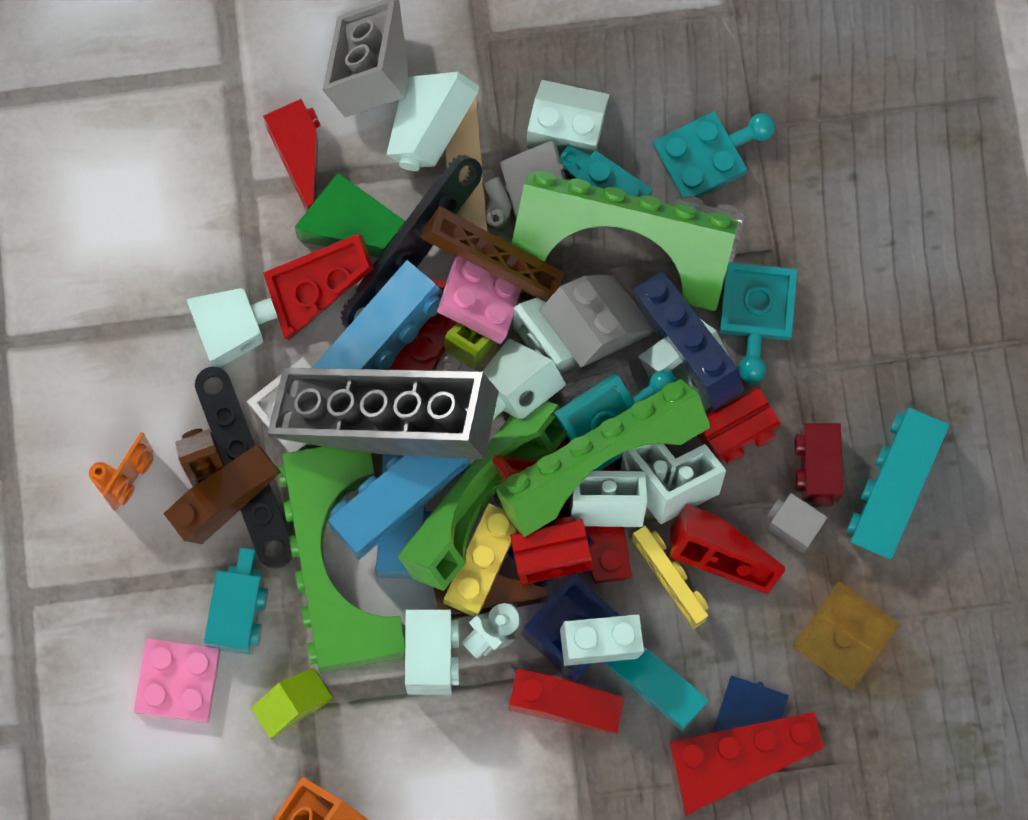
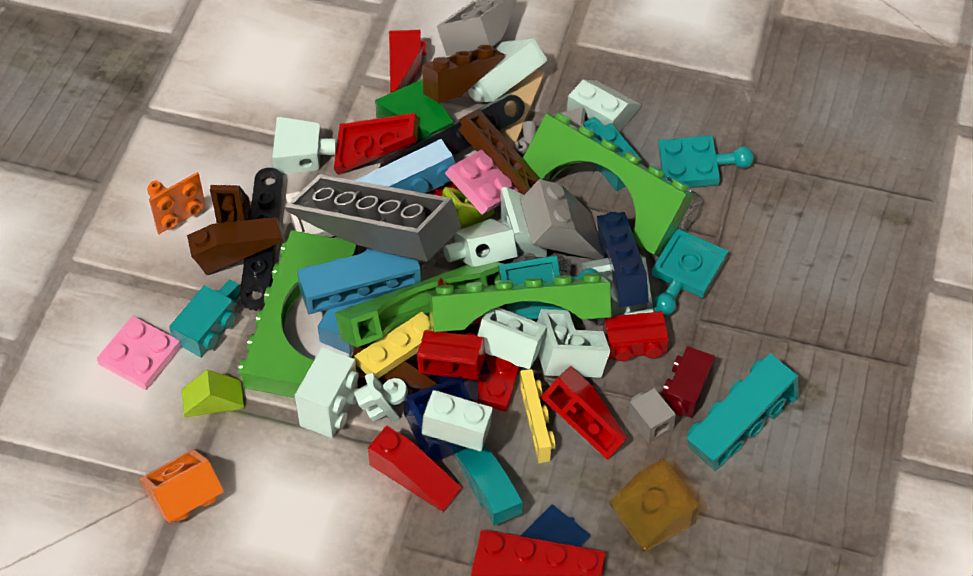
camera: 25 degrees right, 20 degrees down
(384, 154) = (454, 75): none -> reddish brown slope

